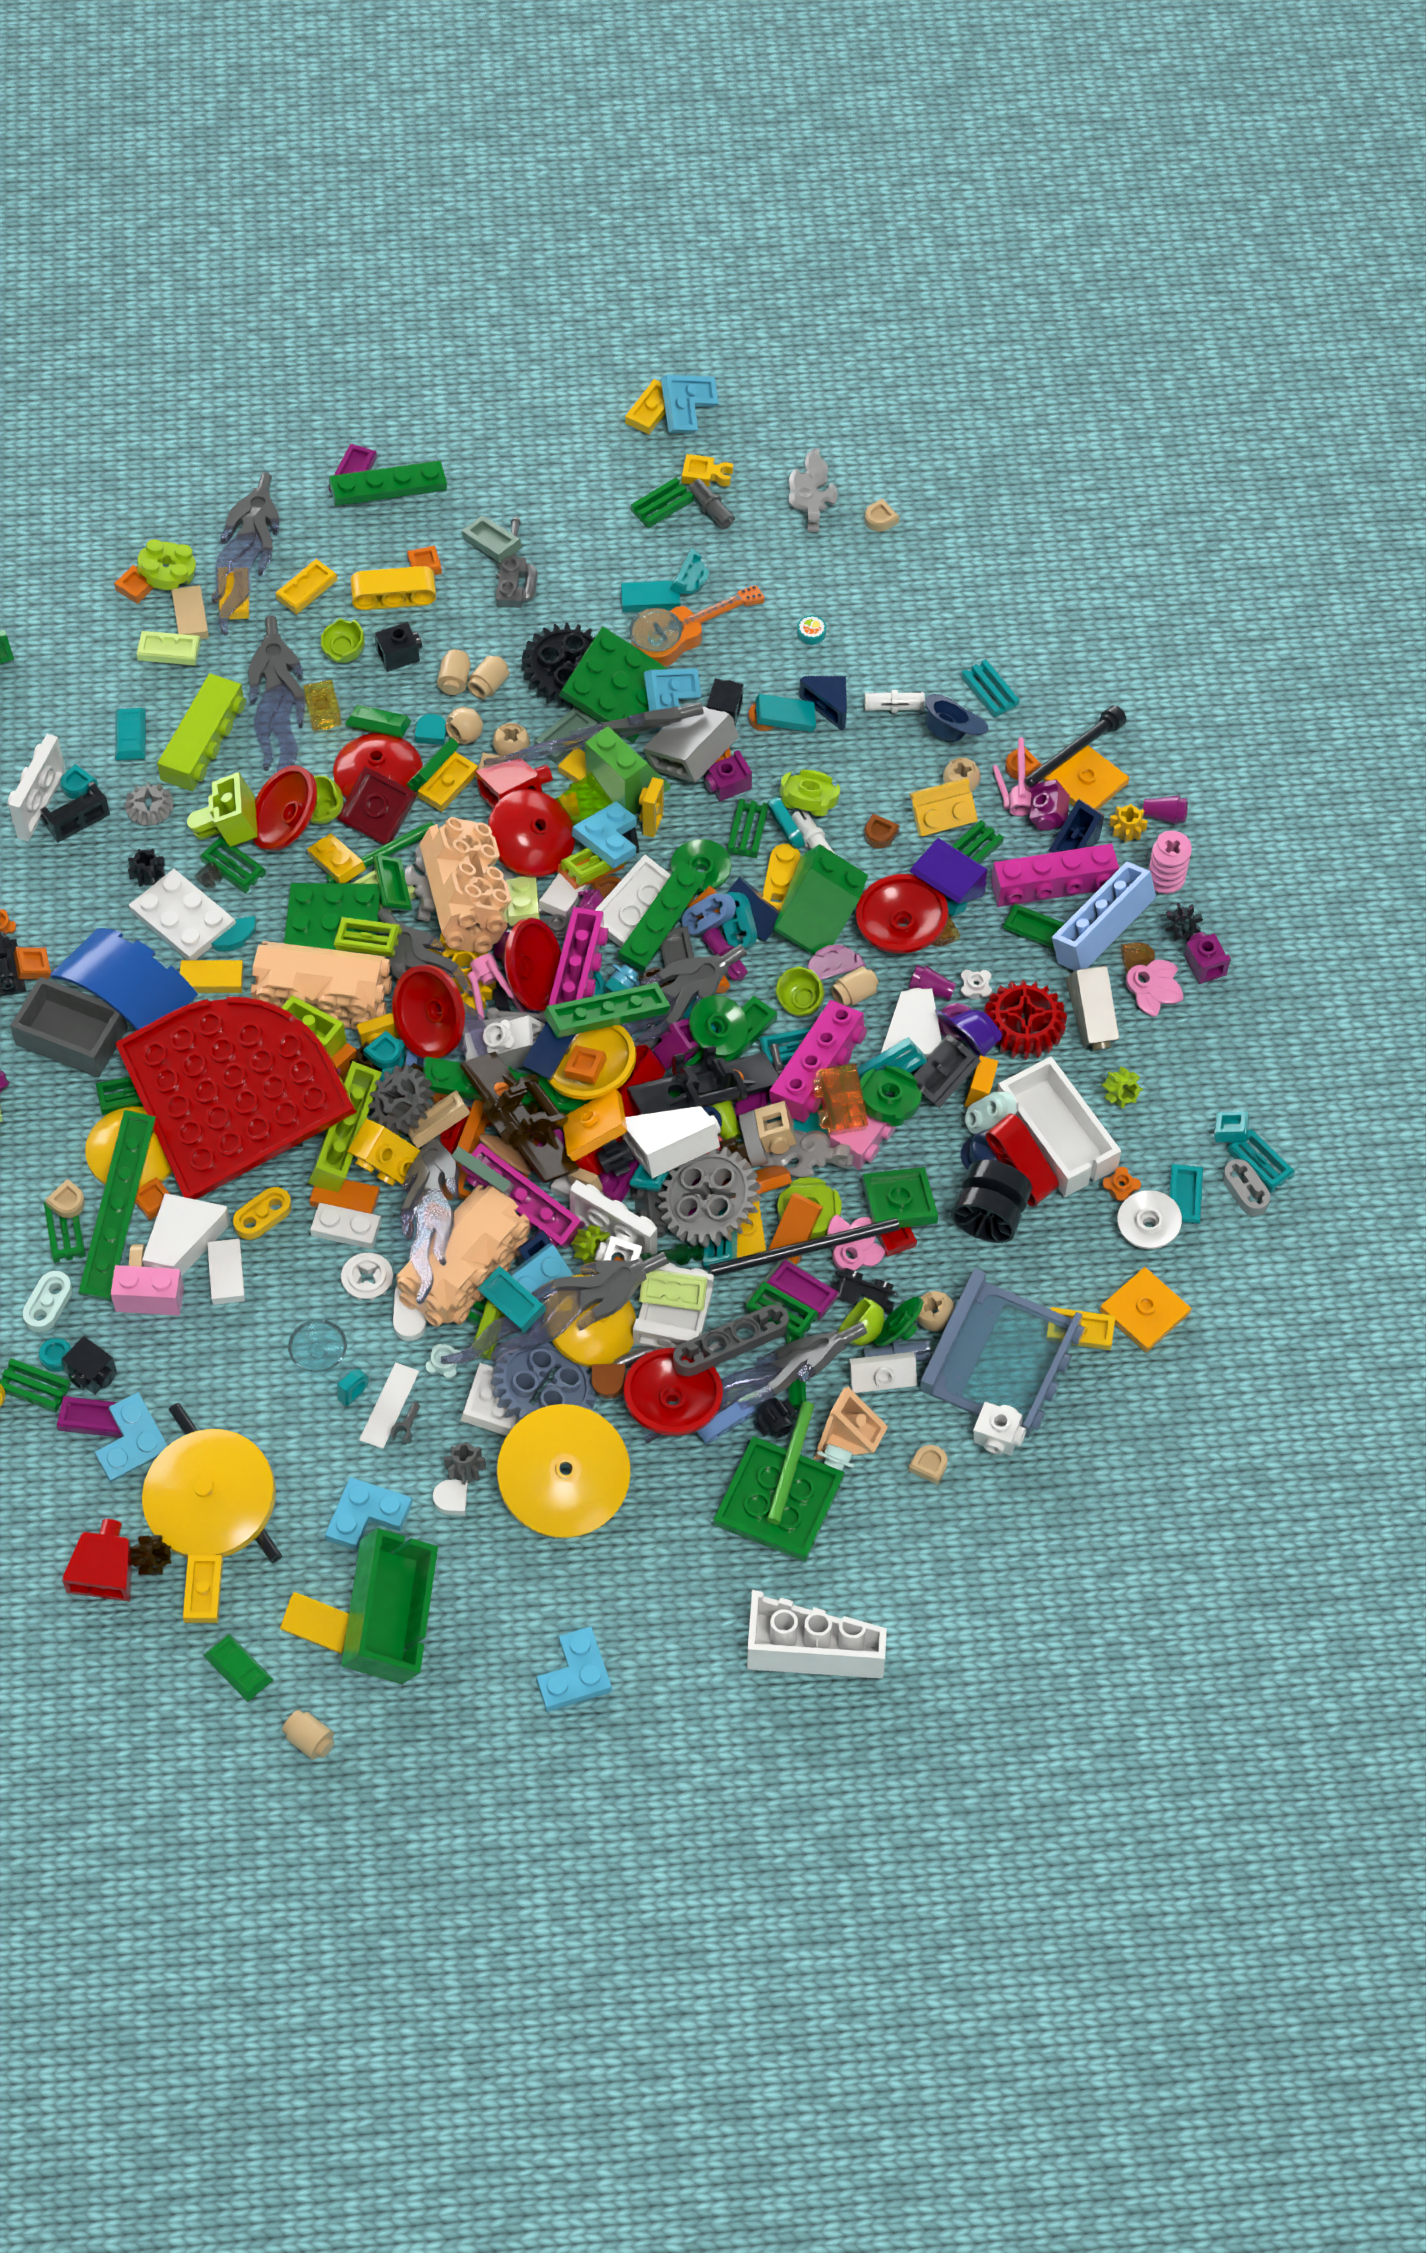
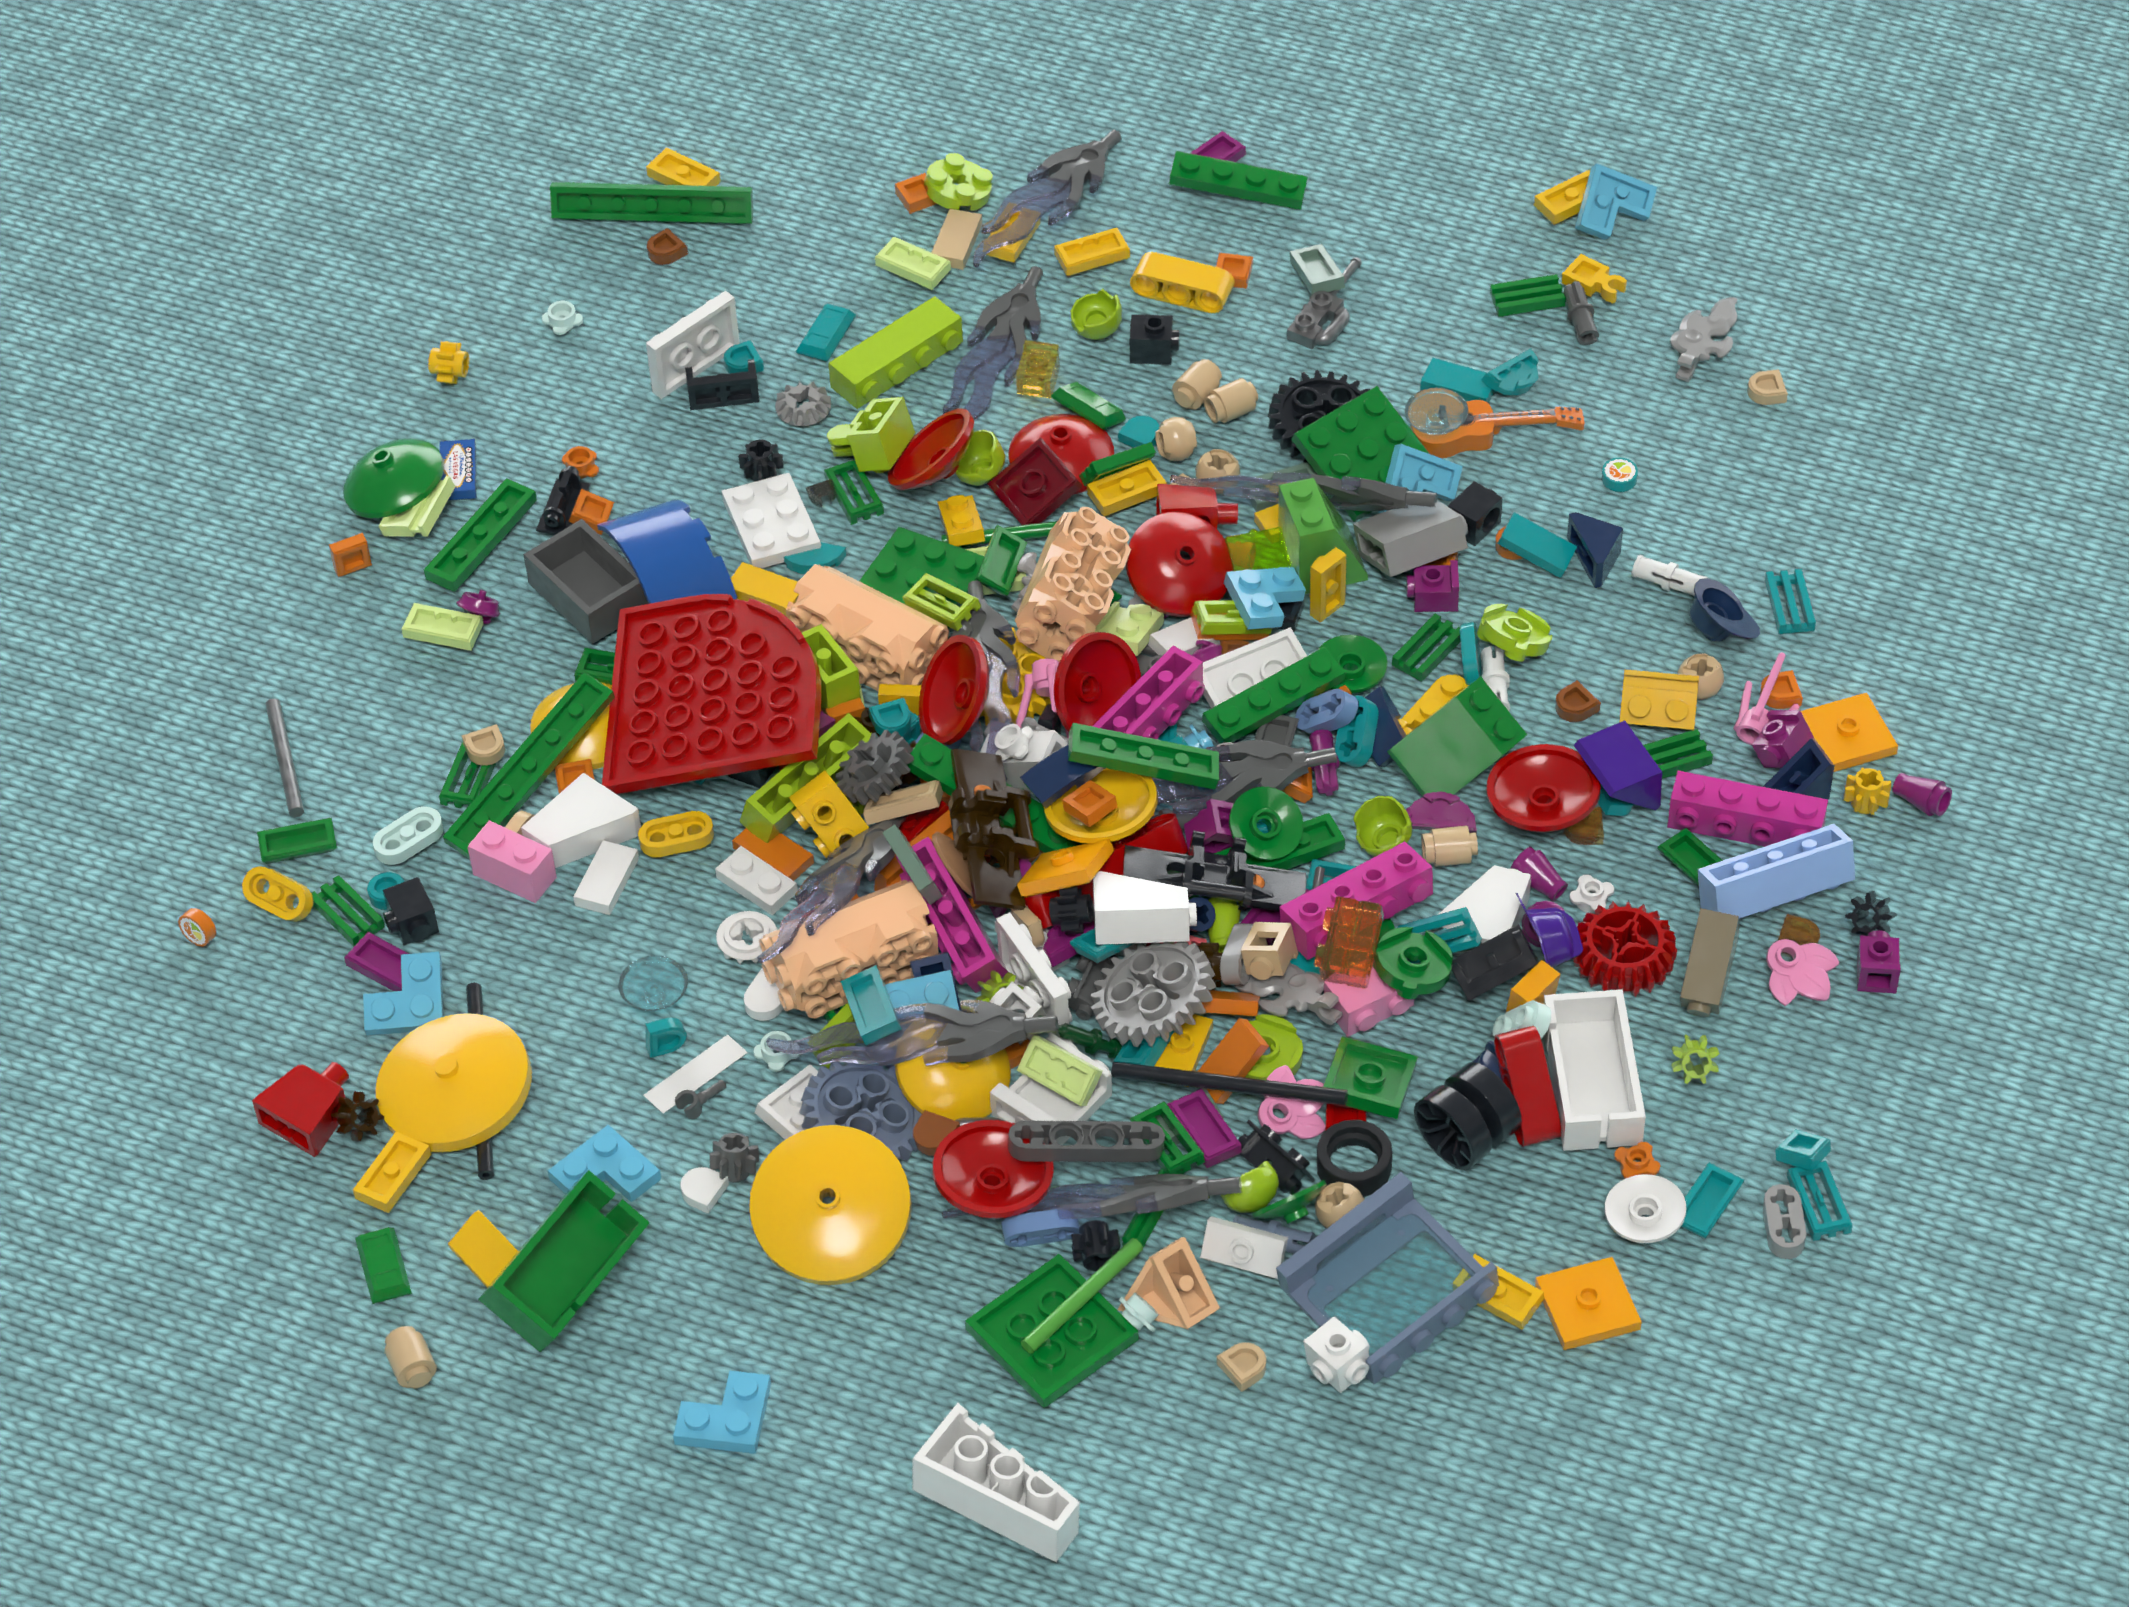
camera: 30 degrees right, 10 degrees down
(921, 1245) = (1351, 1134): none -> black tyre
(1111, 720) = (1910, 679): black piece -> none
(1170, 861) = (1886, 843): bright pink piece -> none

